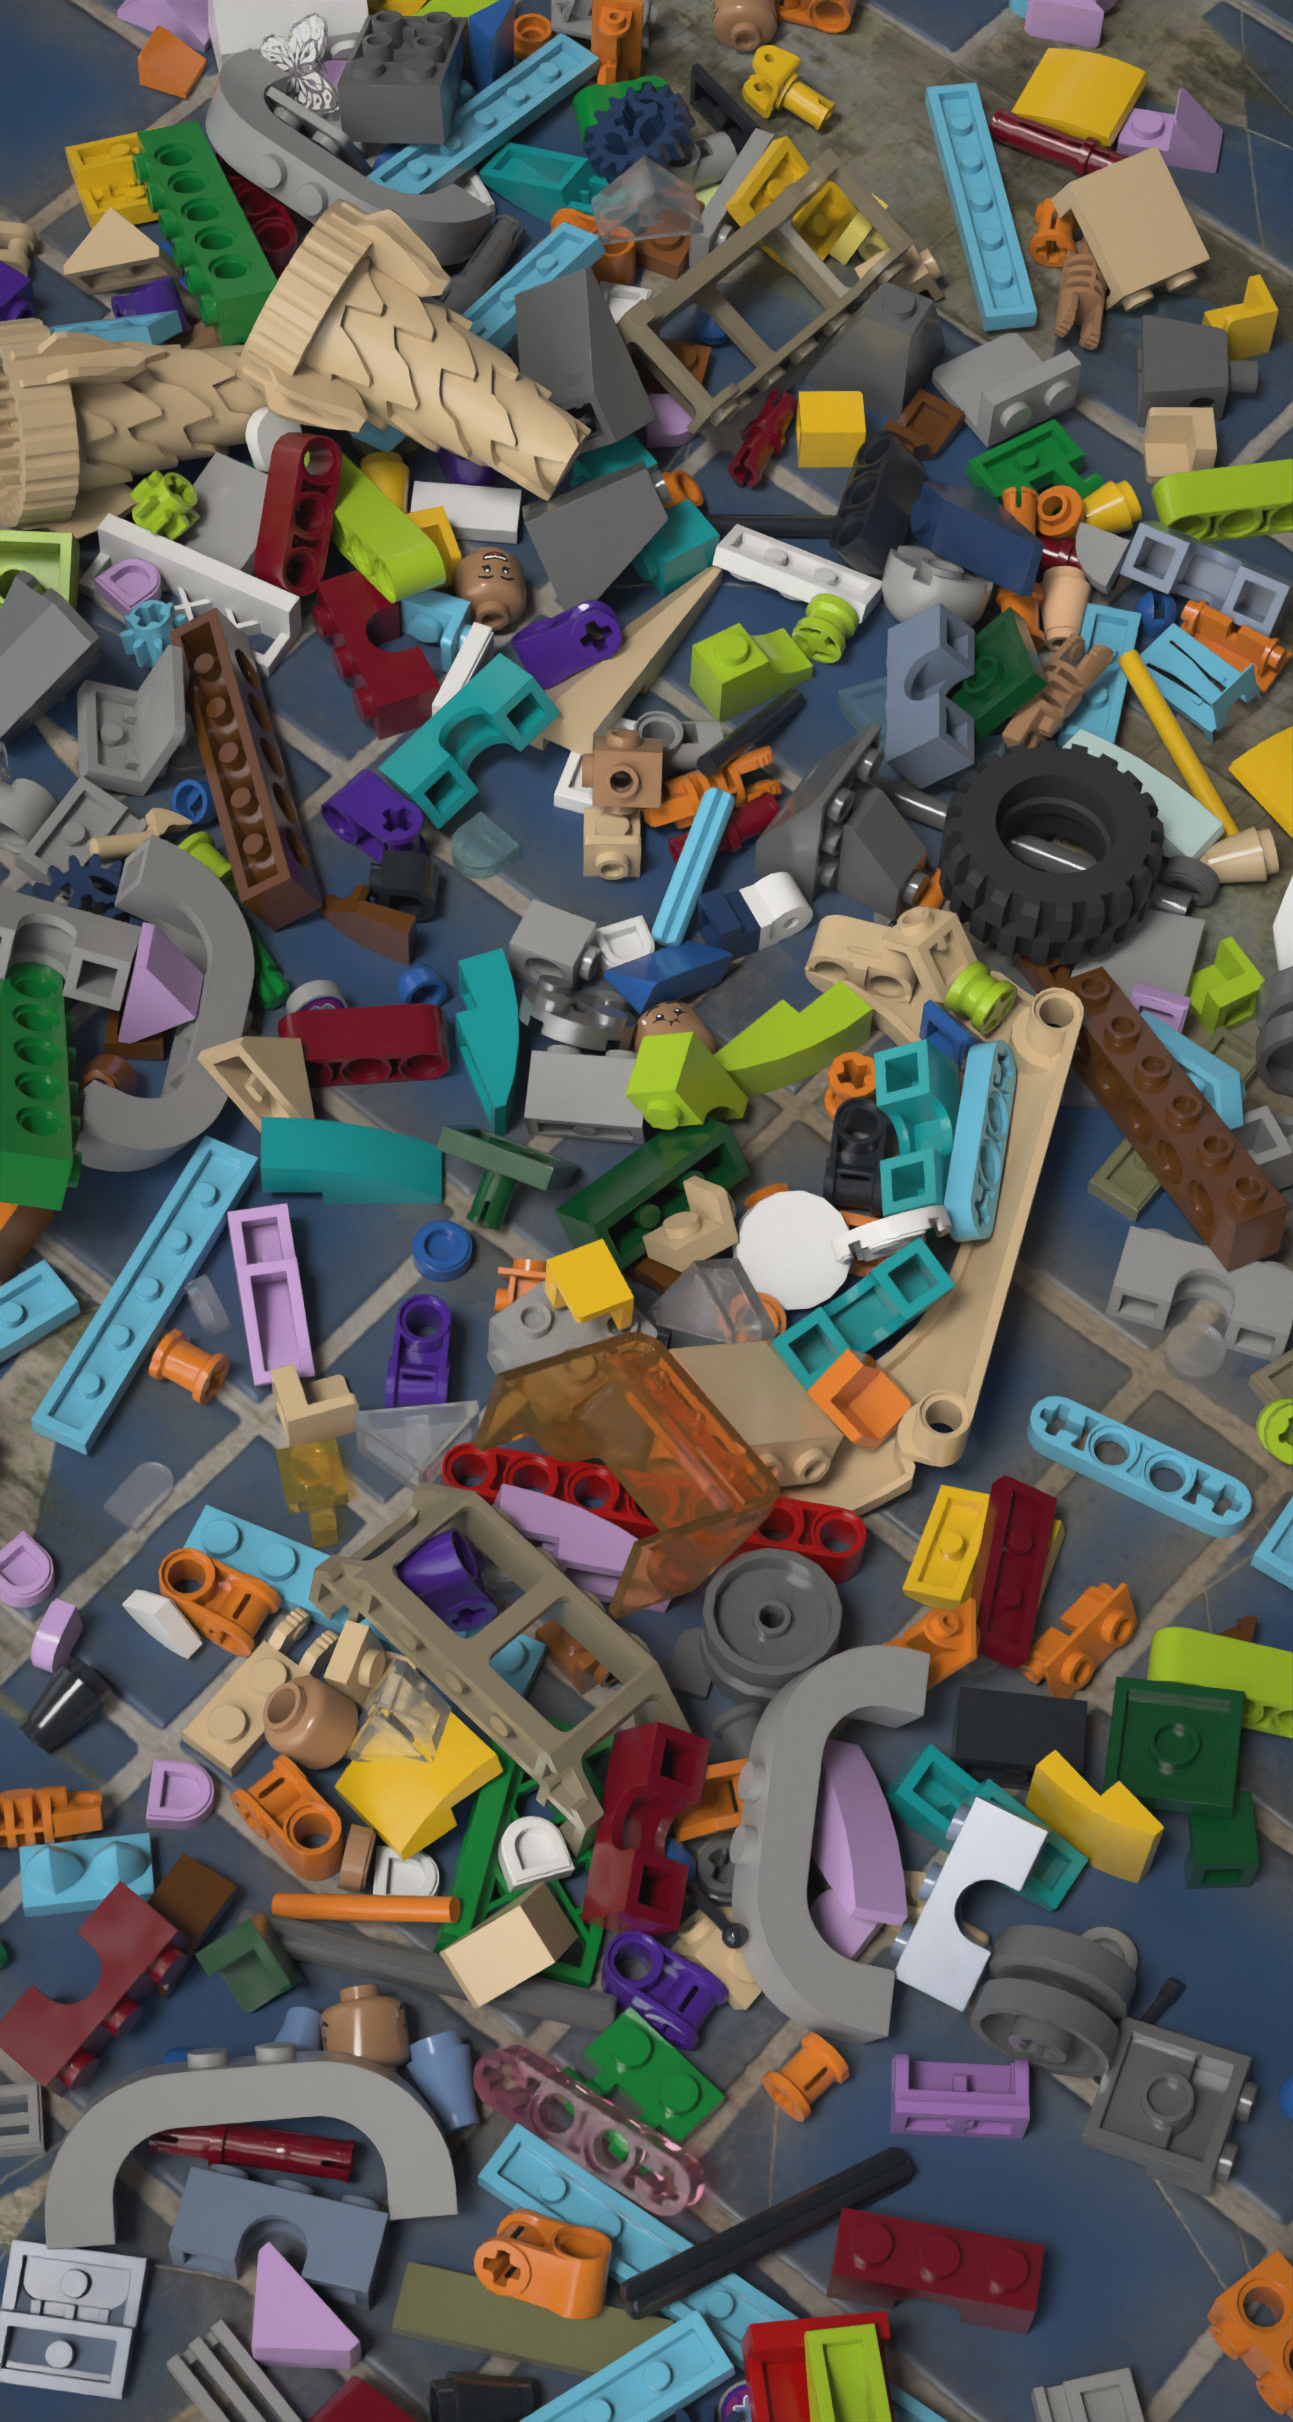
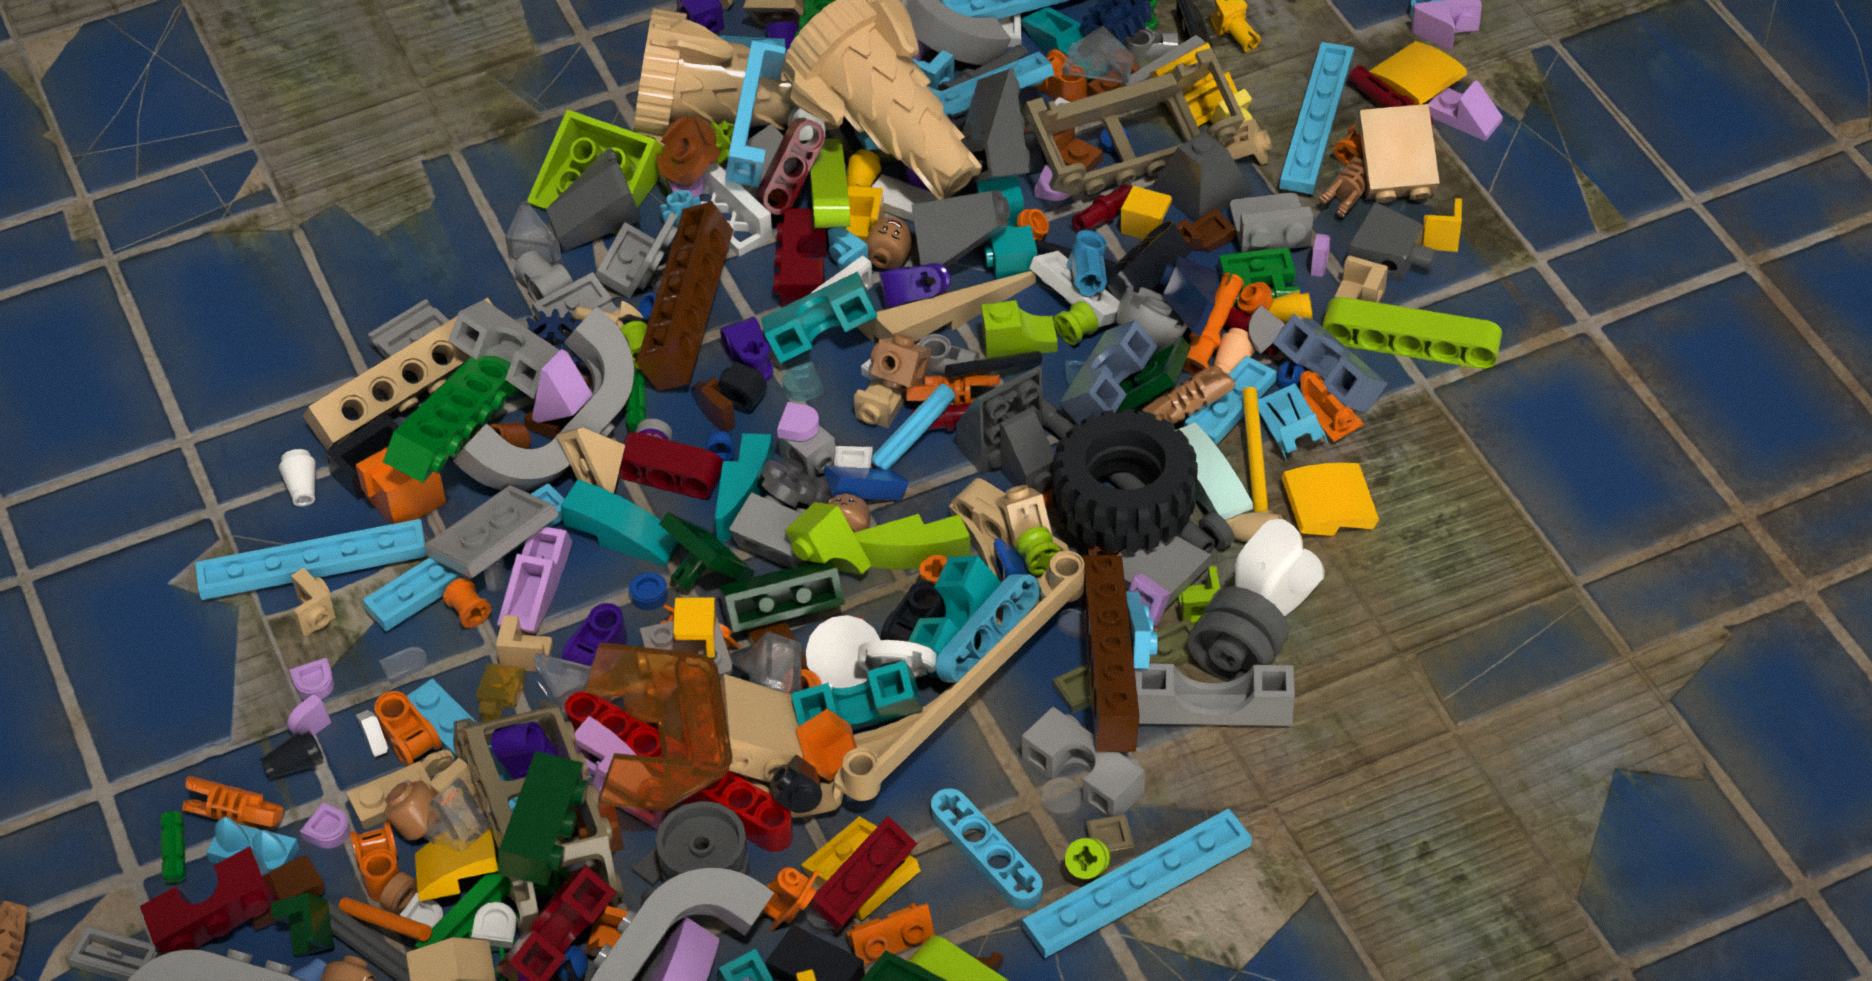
camera: 30 degrees right, 10 degrees down
(154, 543) = (686, 165): none -> dark orange plate
(175, 1244) = (491, 531): none -> light grey tile
(223, 523) = (746, 162): none -> medium azure panel
(537, 916) = (798, 422): none -> lavender tile
(569, 1677) = (542, 819): none -> dark green brick
(695, 1233) = (788, 624): tan bracket -> none
(753, 915) = (937, 467): leg -> none
(799, 530) = (1087, 262): none -> dark azure piece
(867, 1481) = (797, 786): none -> black plate
(1099, 415) = (1320, 255): none -> lavender tile

